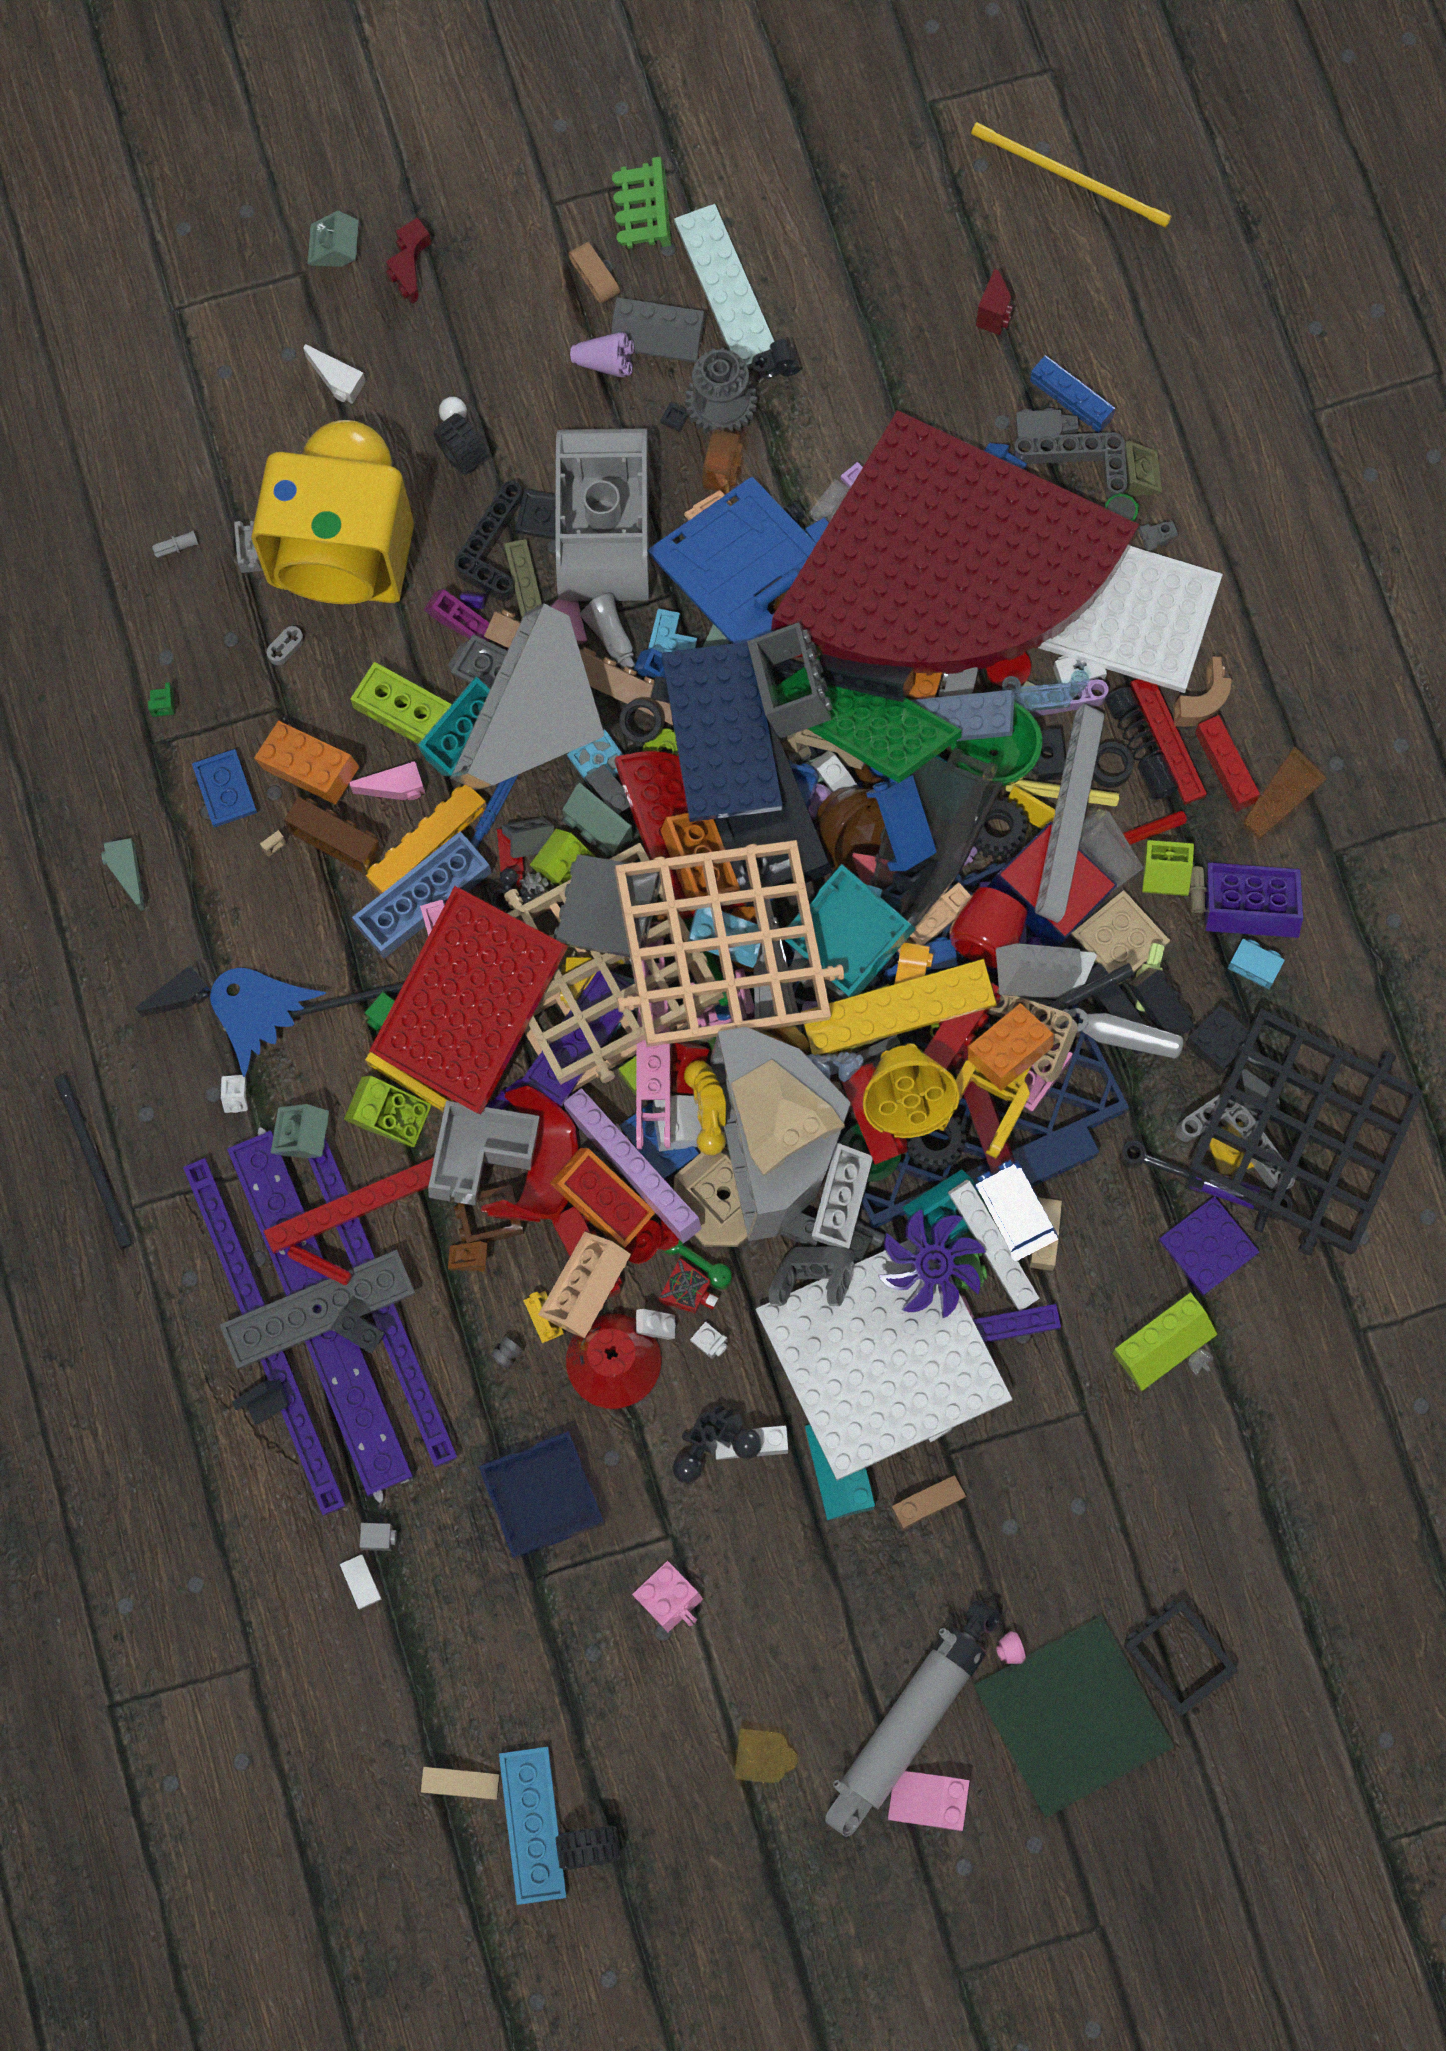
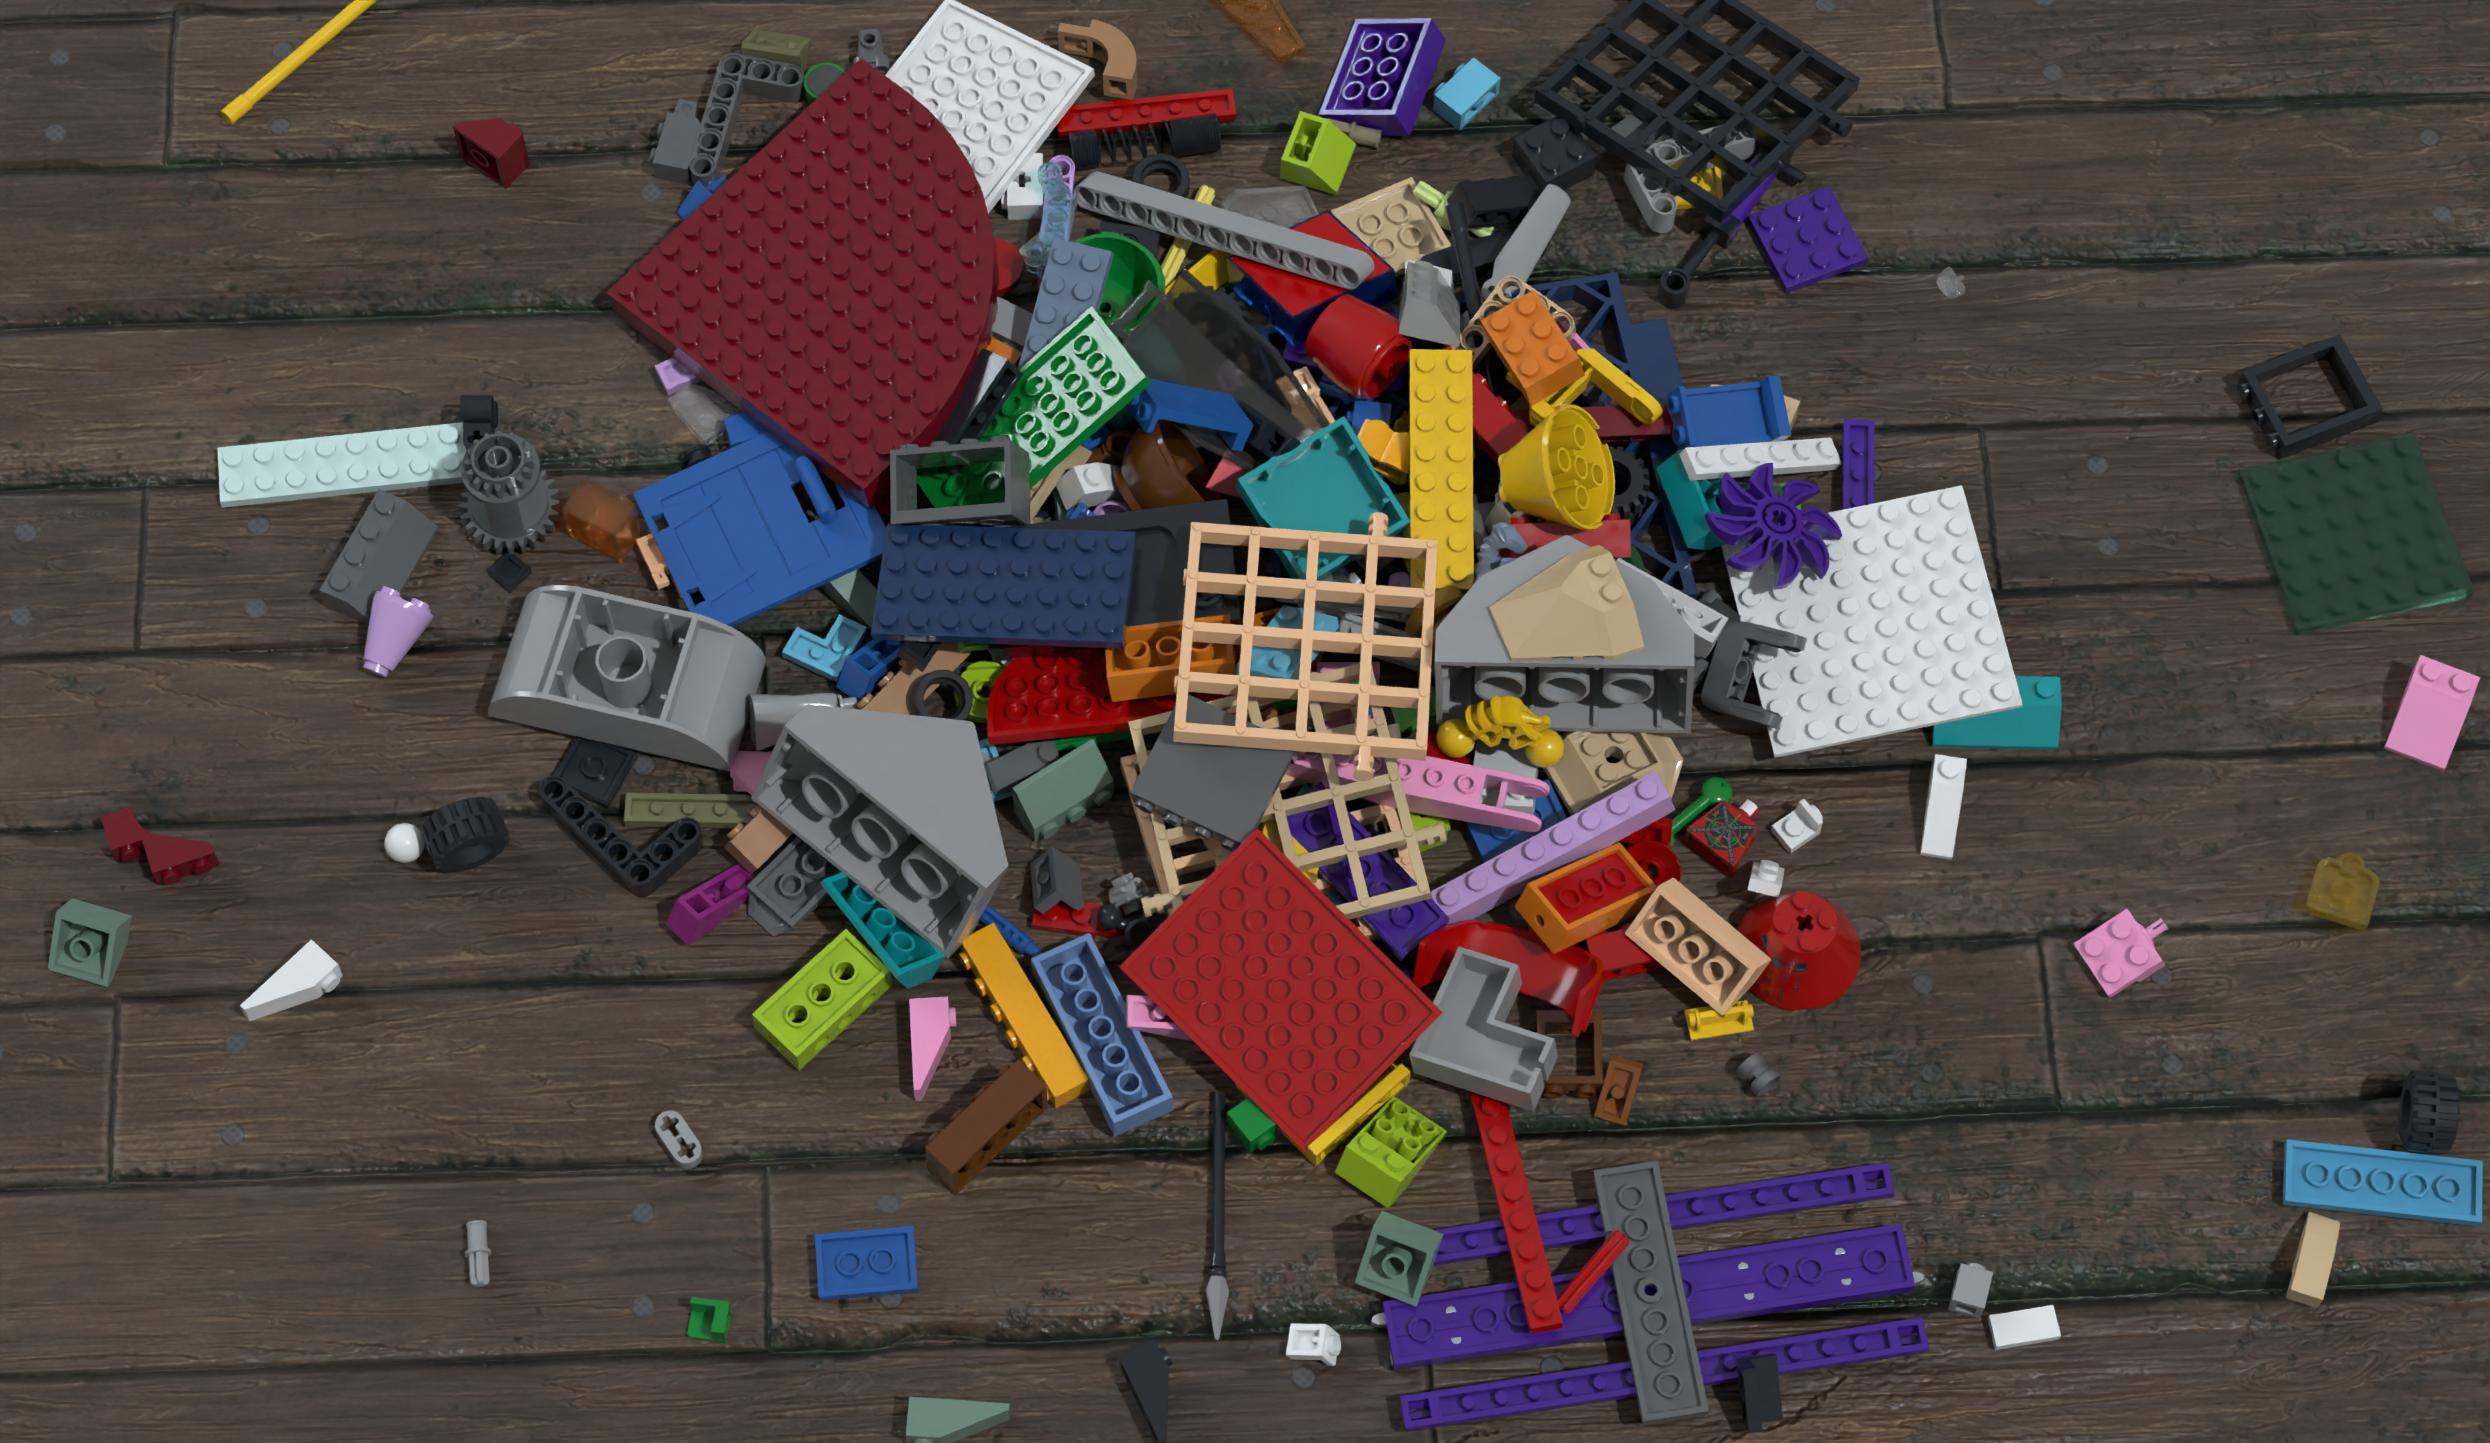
camera: 80 degrees left, 10 degrees down
(246, 553) = (516, 1156): light grey hinge -> none
(255, 1009) = (1201, 1289): blue piece -> none
(273, 843) = (968, 1214): tan tile -> none
(306, 762) = (868, 1137): orange brick -> none
(335, 518) = (539, 997): yellow piece -> none
(357, 1330) = (1696, 1237): black brick -> none
(473, 599) = (690, 878): dark purple slope -> none
(541, 1495) = (1959, 1073): clear blue tile -> none
(557, 857) = (1102, 849): lime slope -> none
(594, 272) = (263, 618): medium nougat beam -> none
(645, 214) = (174, 512): bright green fence -> none
(703, 1436) = (1951, 801): black piece -> none
(911, 1719) = (2331, 701): light grey piece -> none
(927, 1502) = (2063, 628): medium nougat slope -> none
(1011, 1649) = (2263, 575): bright pink cone -> none
(1072, 394) = (646, 98): blue brick -> none
(1155, 827) = (1256, 154): red axle -> none
(1165, 1342) = (1915, 315): lime slope -> none
(1227, 763) = (1199, 56): red brick -> none

